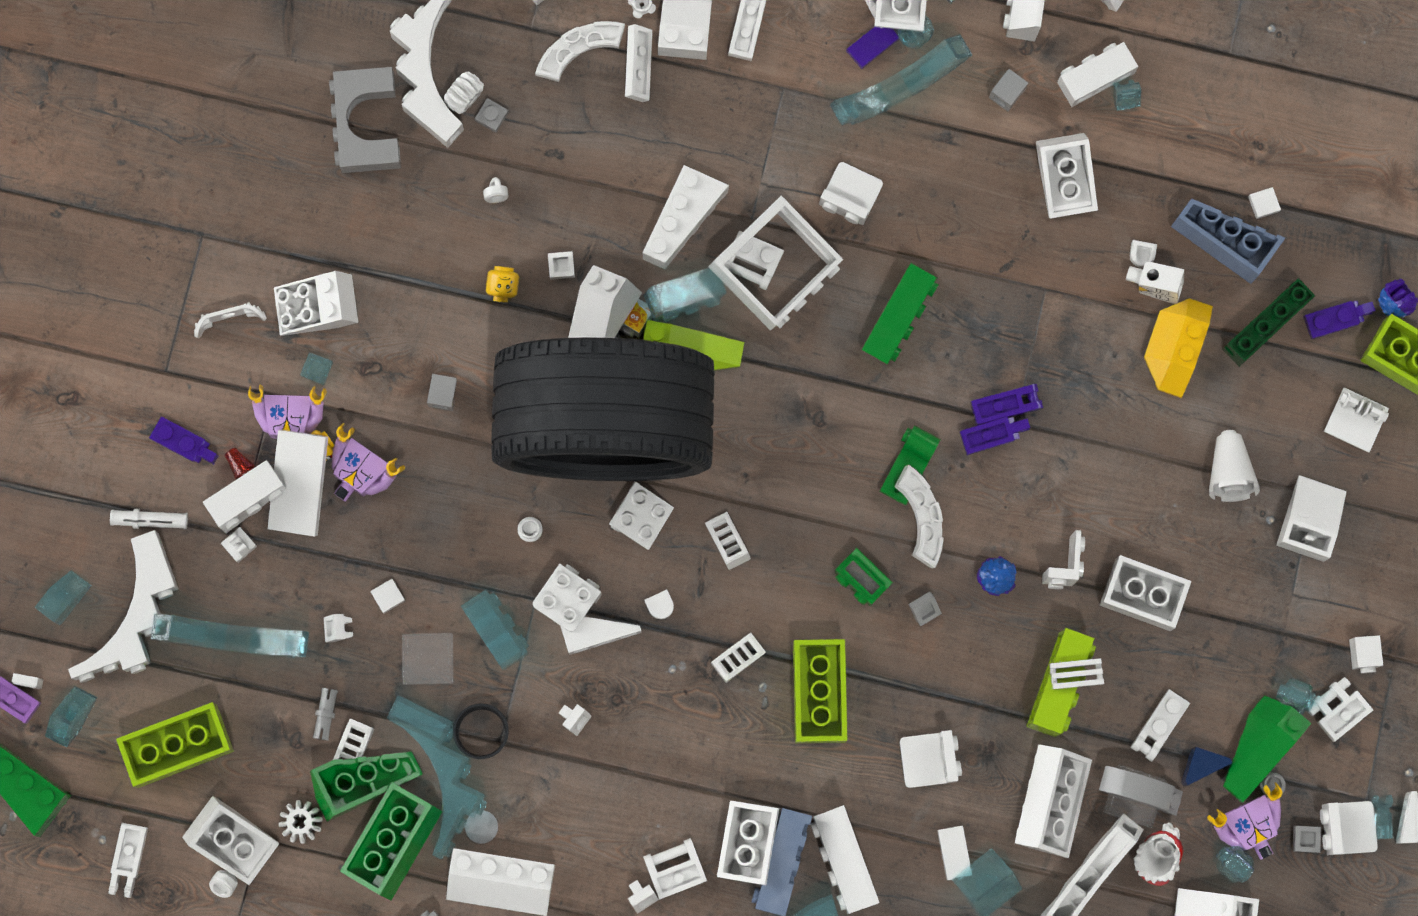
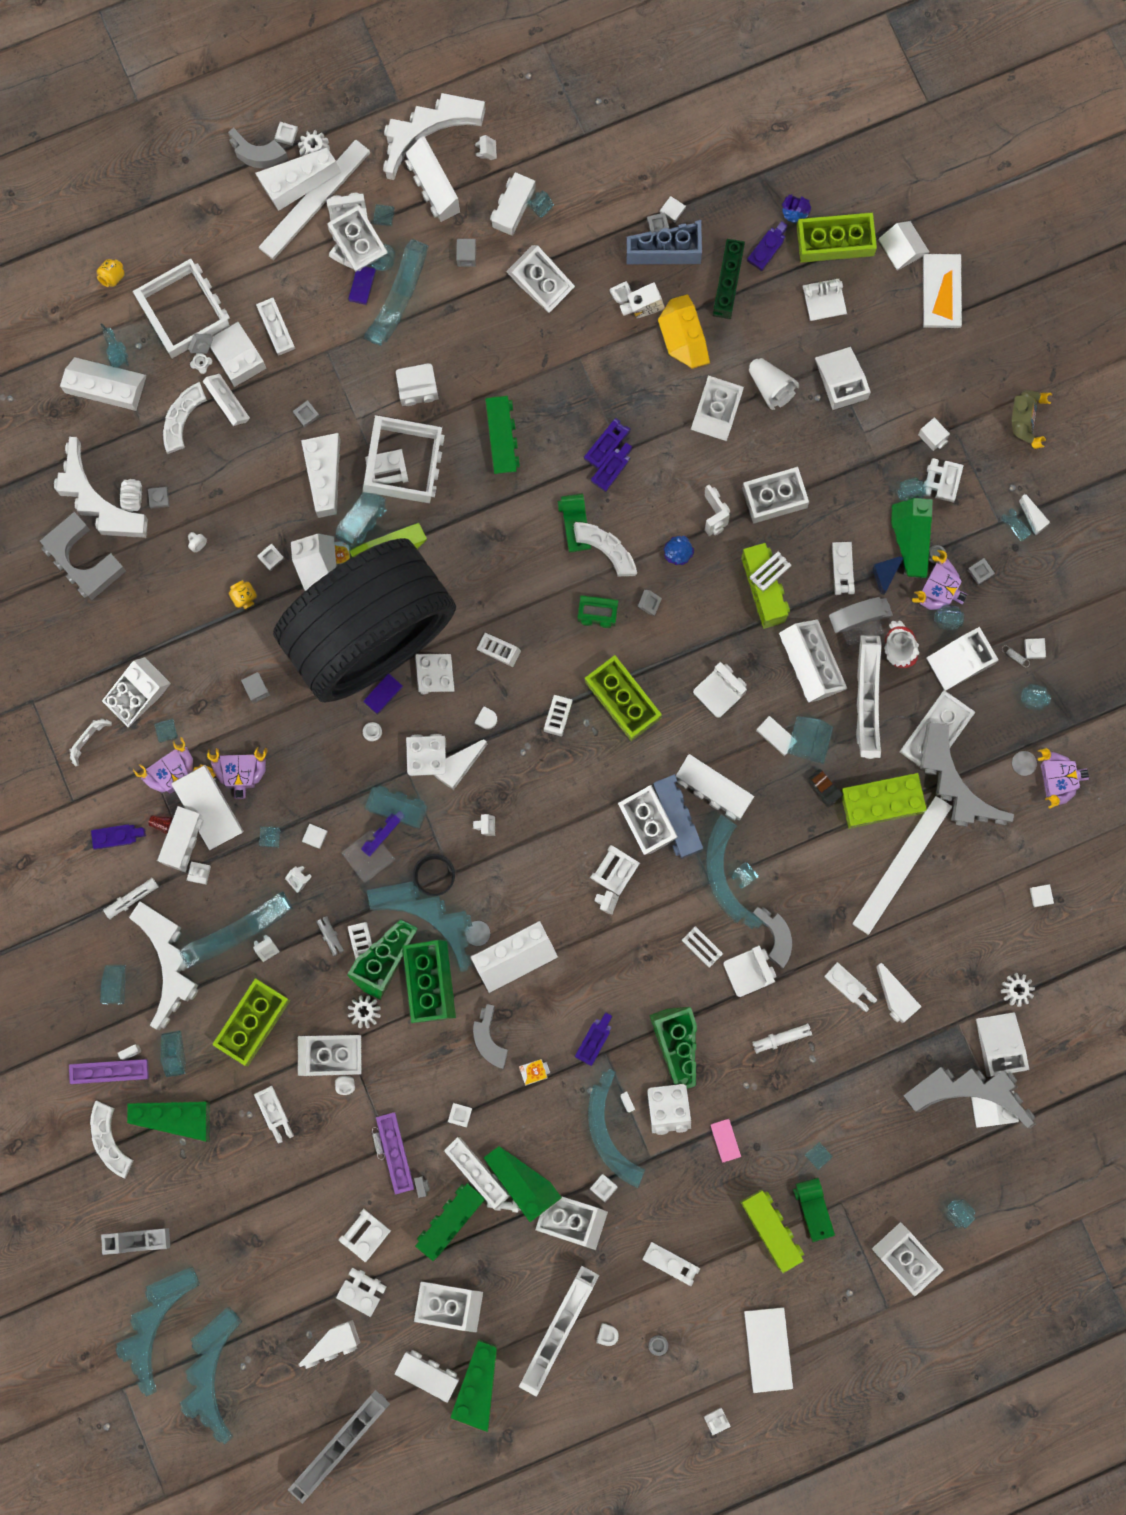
camera: 25 degrees left, 0 degrees up
(248, 678) = (266, 948): none -> white tile
(339, 562) = (269, 837): none -> clear light blue tile
(457, 647) = (381, 834): none -> dark purple hinge
(571, 497) = (383, 694): none -> dark purple tile
(711, 139) = (306, 413): none -> light grey plate
(1153, 453) = (717, 408): none -> white slope
(1237, 206) = (657, 222): none -> light grey plate
(1348, 828) = (1001, 546): white bracket -> none

